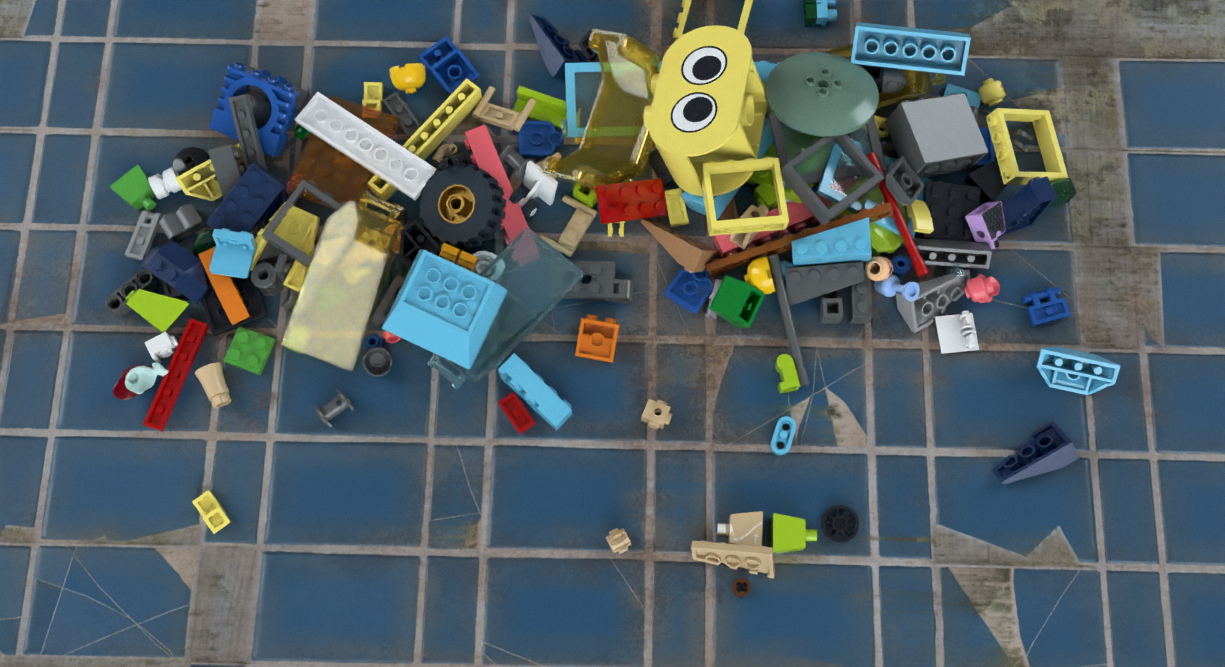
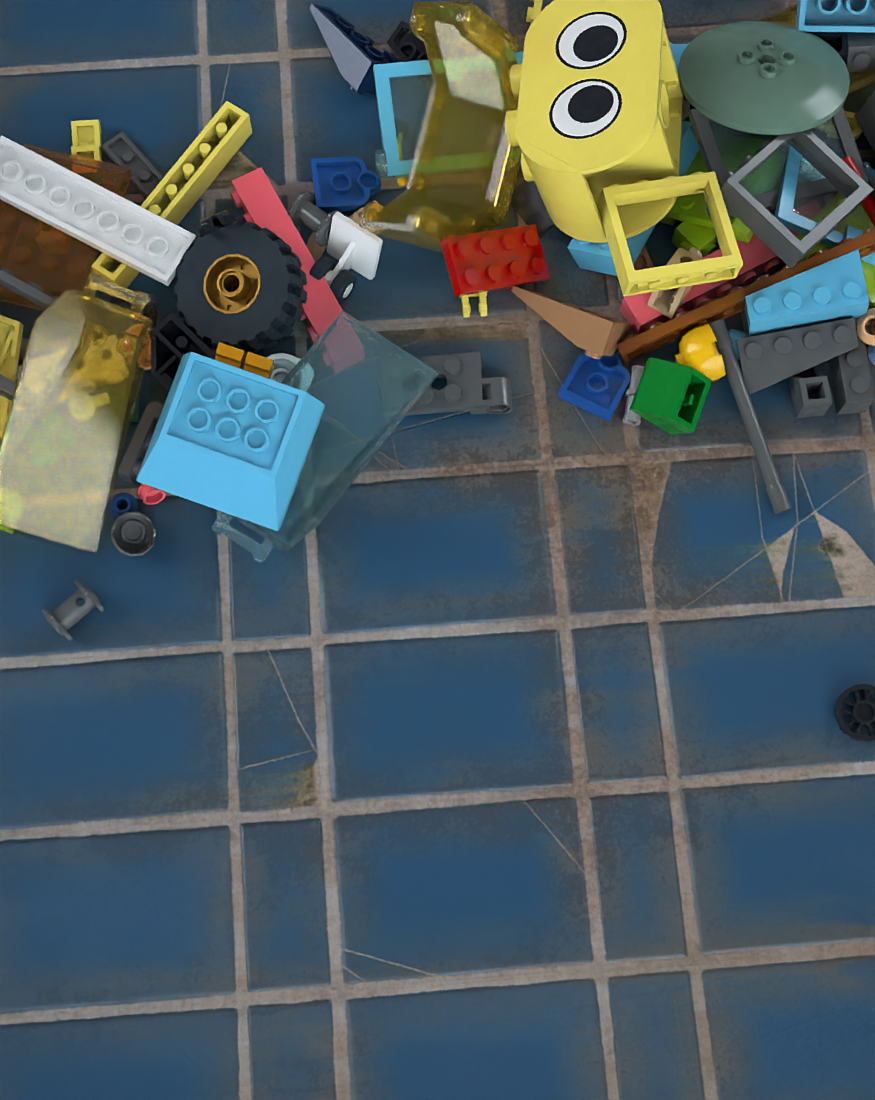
camera: 10 degrees left, 0 degrees up
(408, 77) = (137, 108): yellow cylinder -> none
(444, 151) = (202, 212): tan arm -> none
(447, 65) = (194, 87): blue slope -> none
(501, 116) = (283, 154): tan plate -> none
(516, 413) = (355, 592): red plate -> none
(535, 392) = (380, 557): medium azure wedge -> none
(545, 109) = (340, 136): lime panel -> none
(575, 228) = (414, 308): tan plate -> none
(589, 200) = (430, 266): lime brick -> none
(597, 338) = (466, 469): orange plate -> none
(618, 540) = (533, 771): tan gear -> none
(653, 408) = (569, 573): tan brick -> none
(676, 207) = (561, 267): light yellow plate -> none
(741, 594) = (729, 834): reddish brown bush -> none
(743, 528) = (722, 737): tan torso -> none
(749, 557) = (733, 776): tan wing -> none
(783, 436) = (762, 590): medium azure plate -> none
(788, 374) = (758, 496): lime leg -> none
(789, 534) = (791, 735): lime torso -> none

